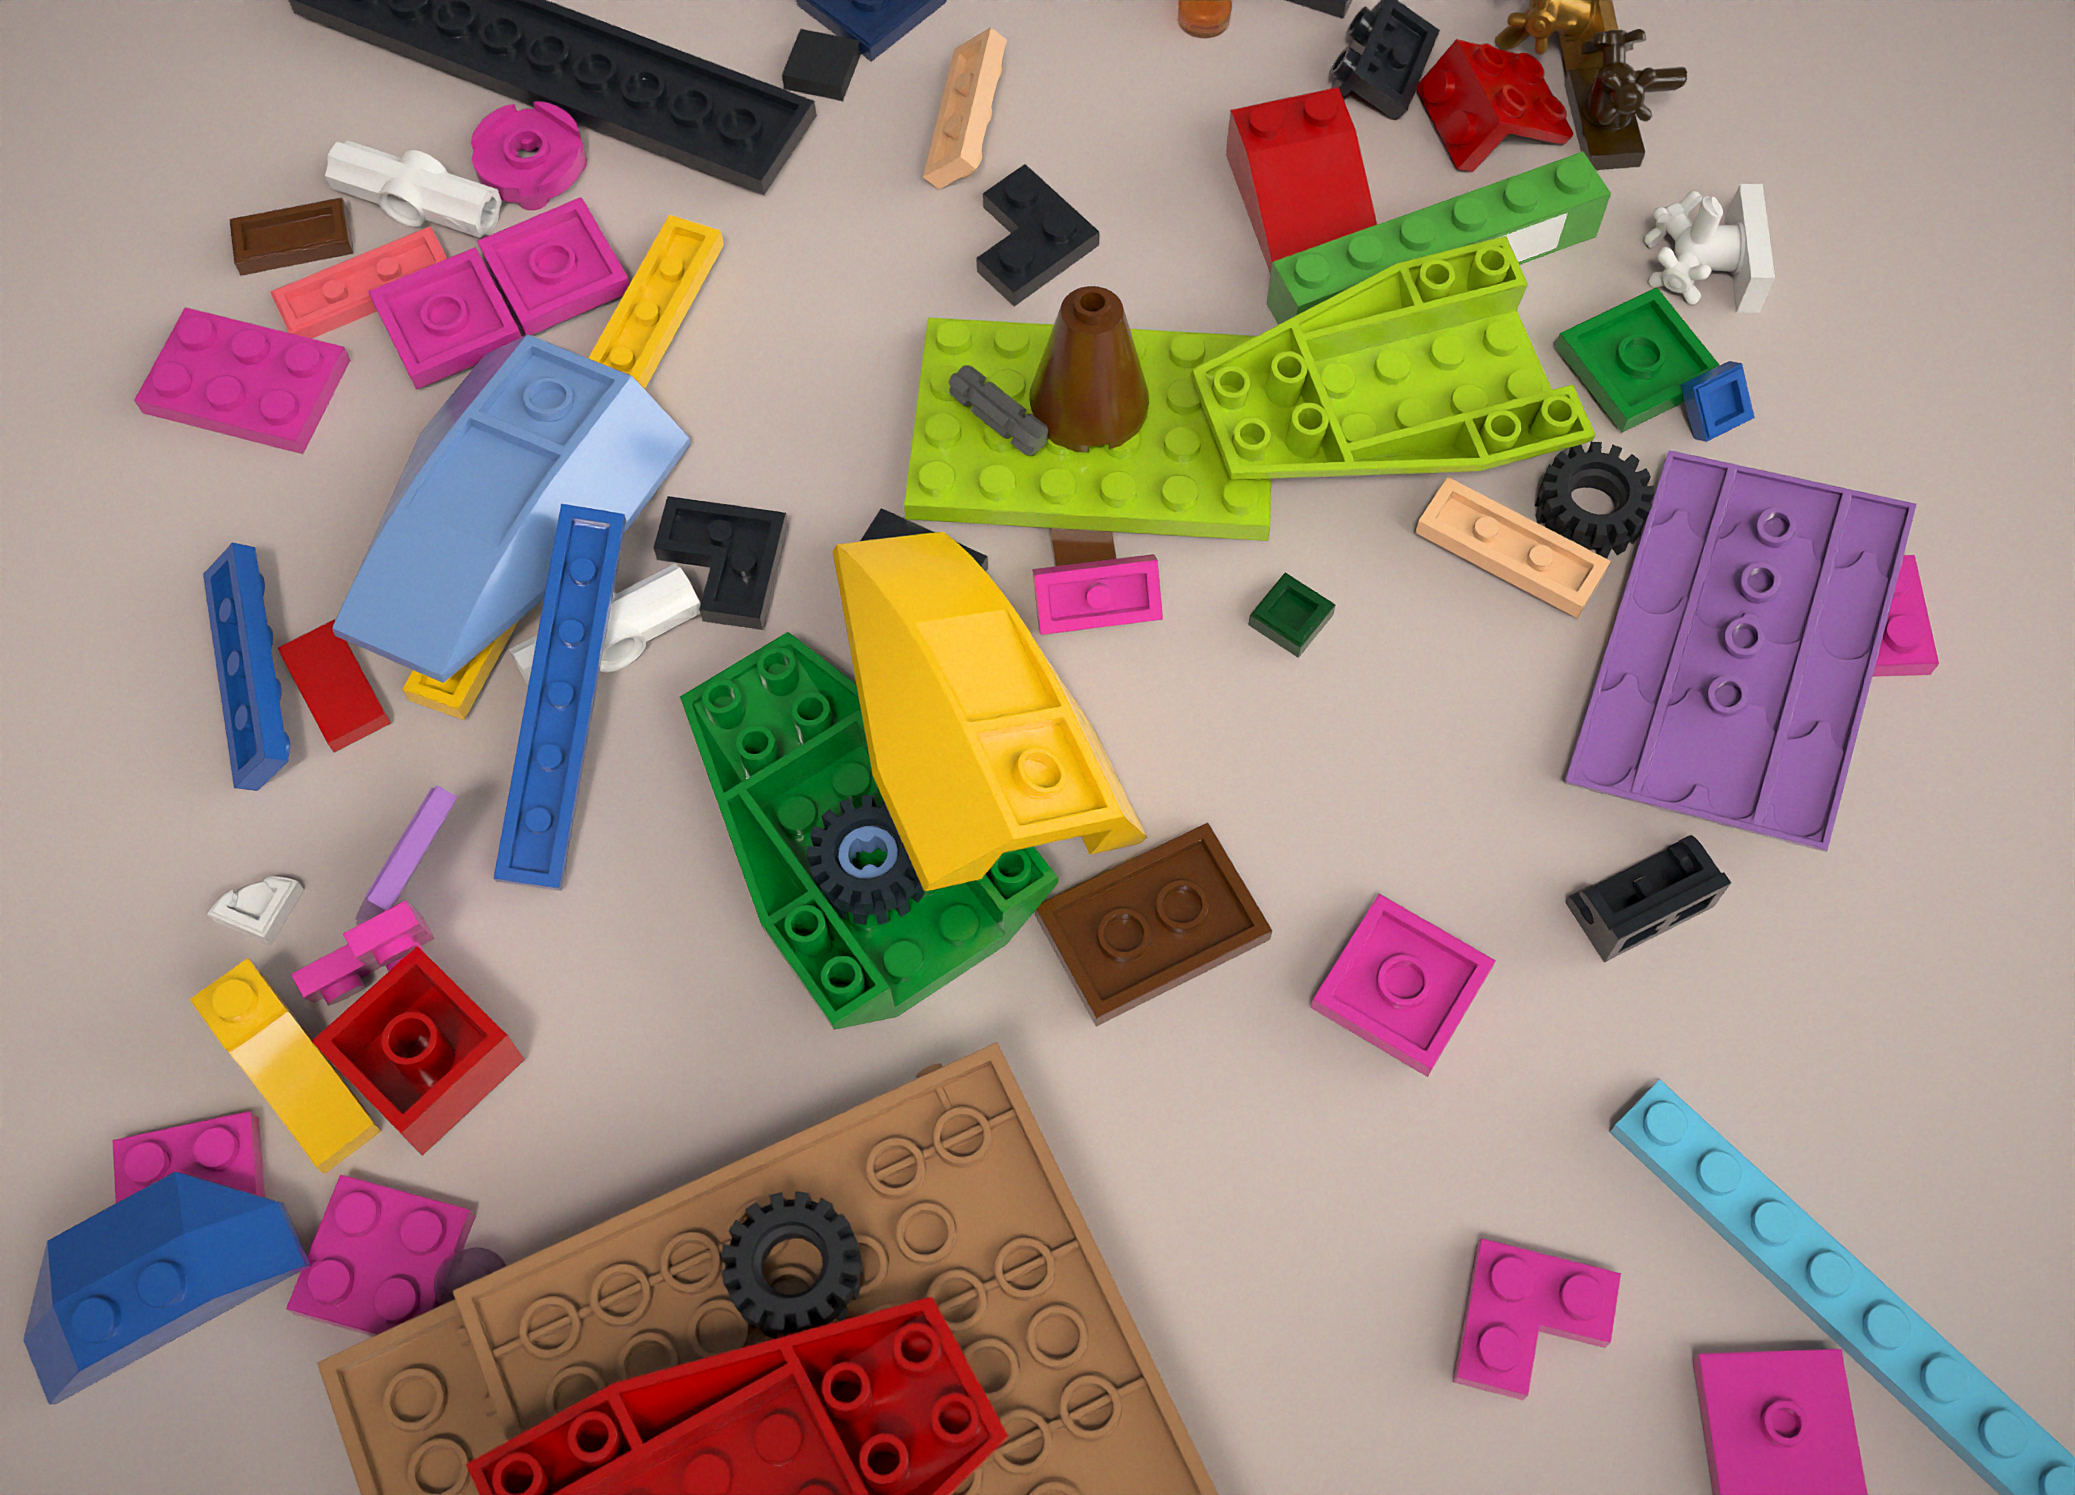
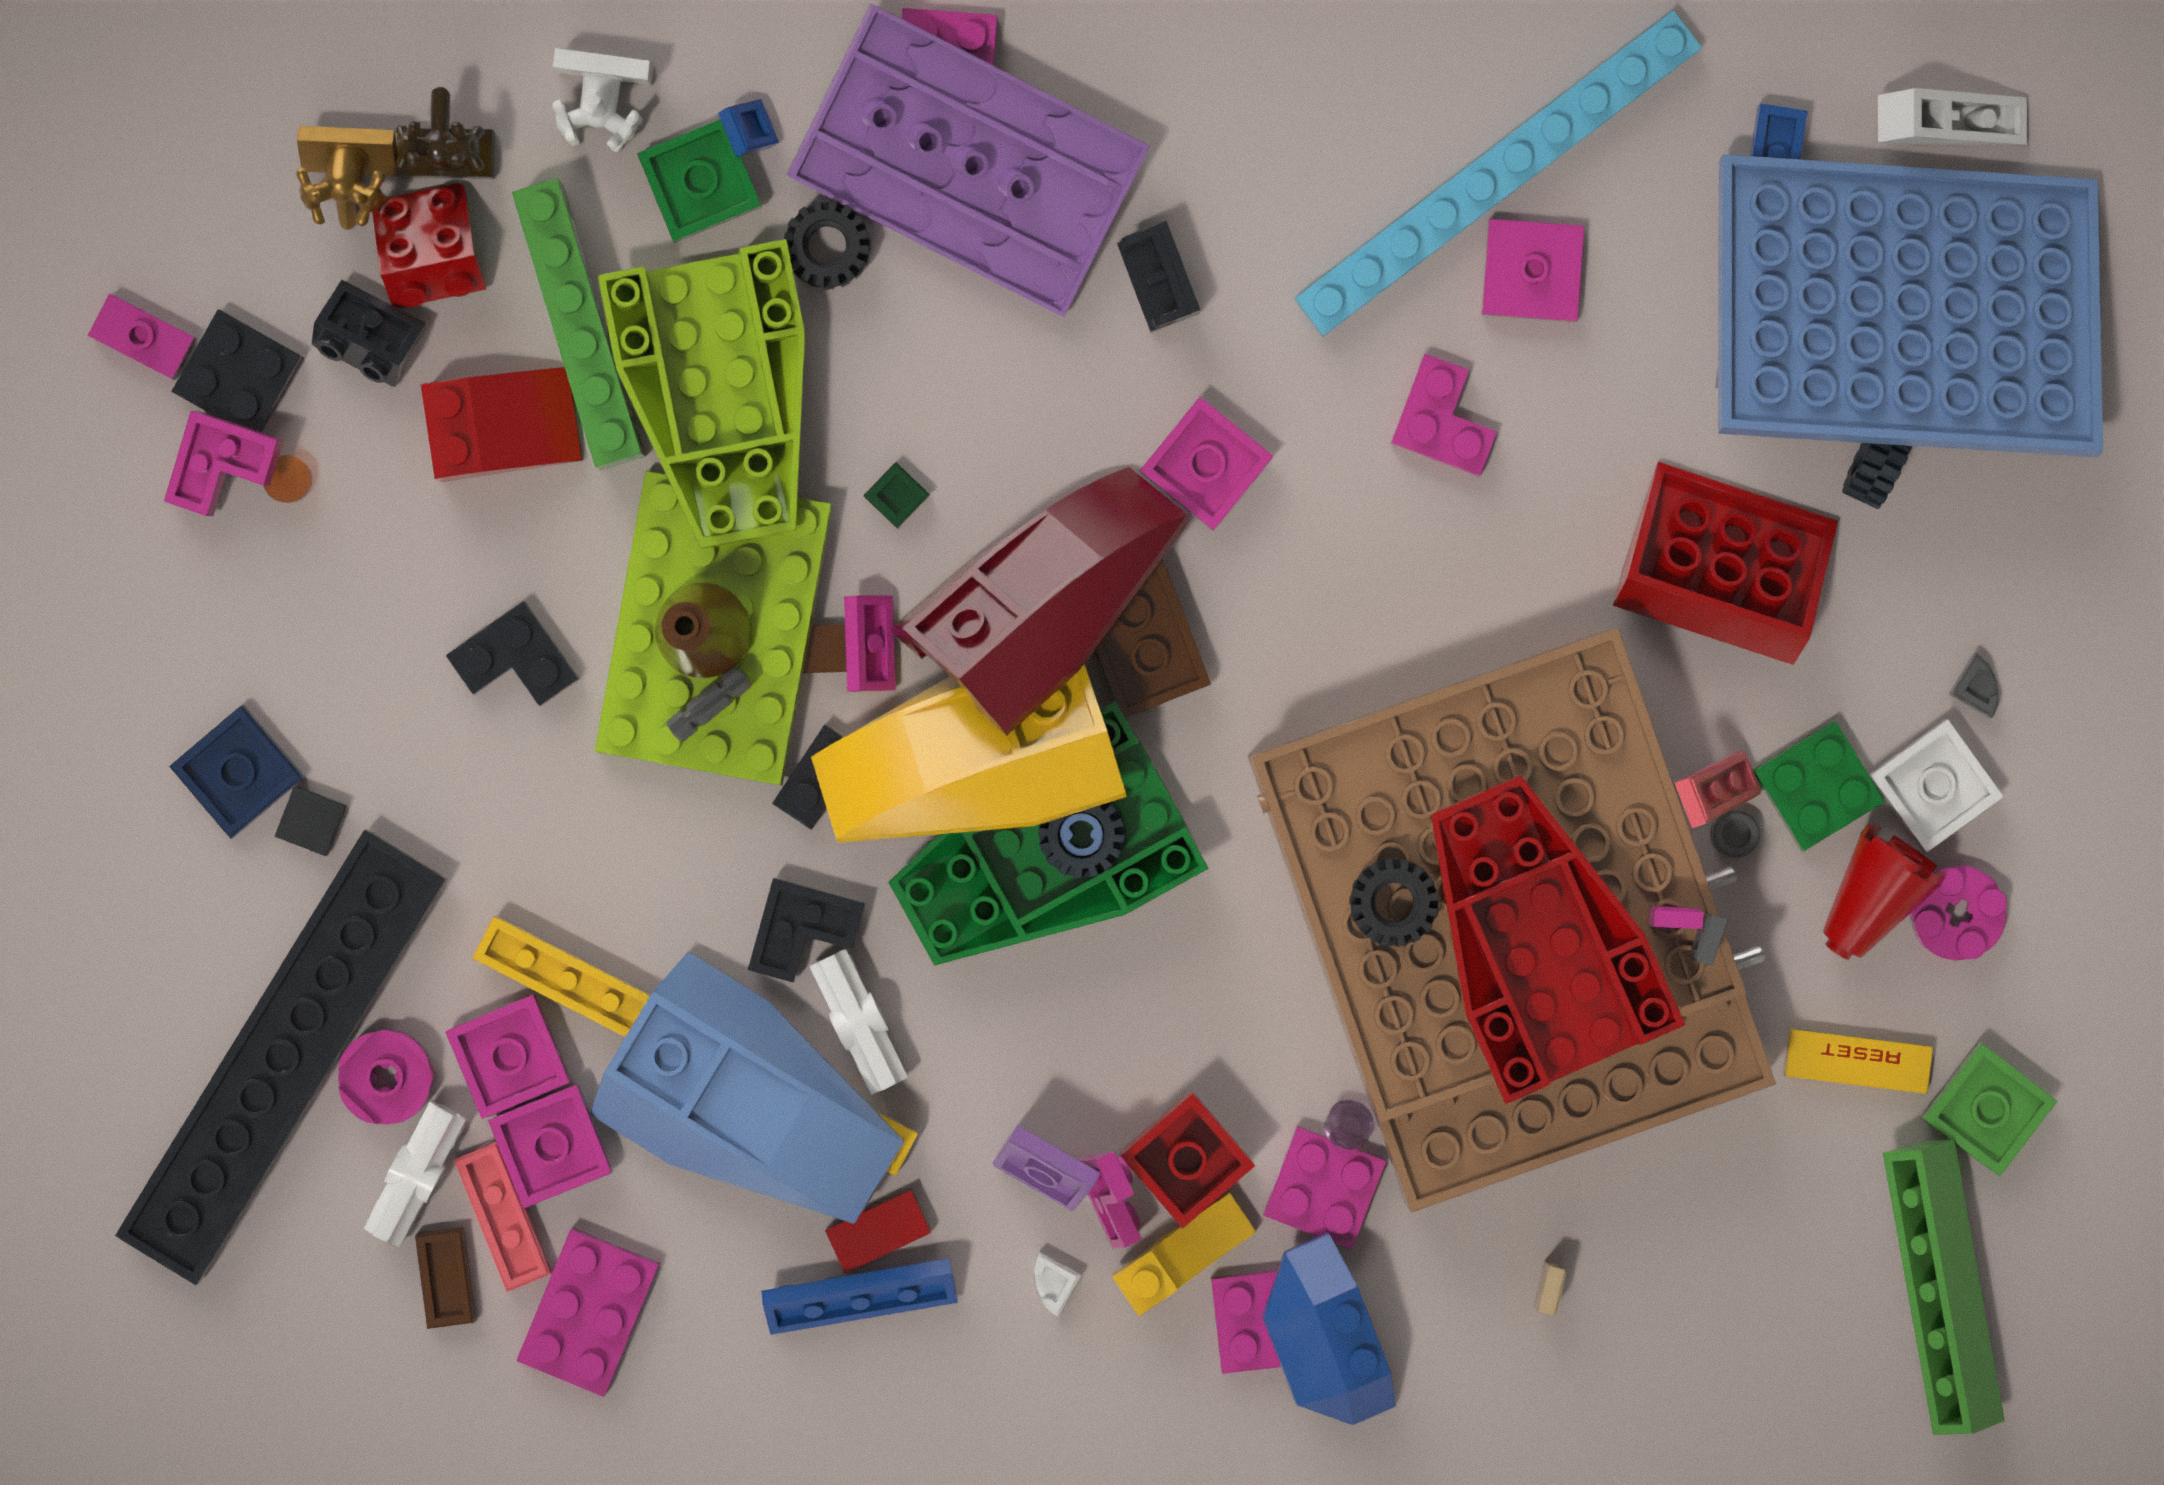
camera: 85 degrees left, 25 degrees up
(560, 698) = (924, 1053): blue plate -> none
(965, 109) = (382, 700): light nougat plate -> none
(1190, 766) = (1044, 595): none -> dark red wedge
(1512, 547) = (861, 316): light nougat plate -> none

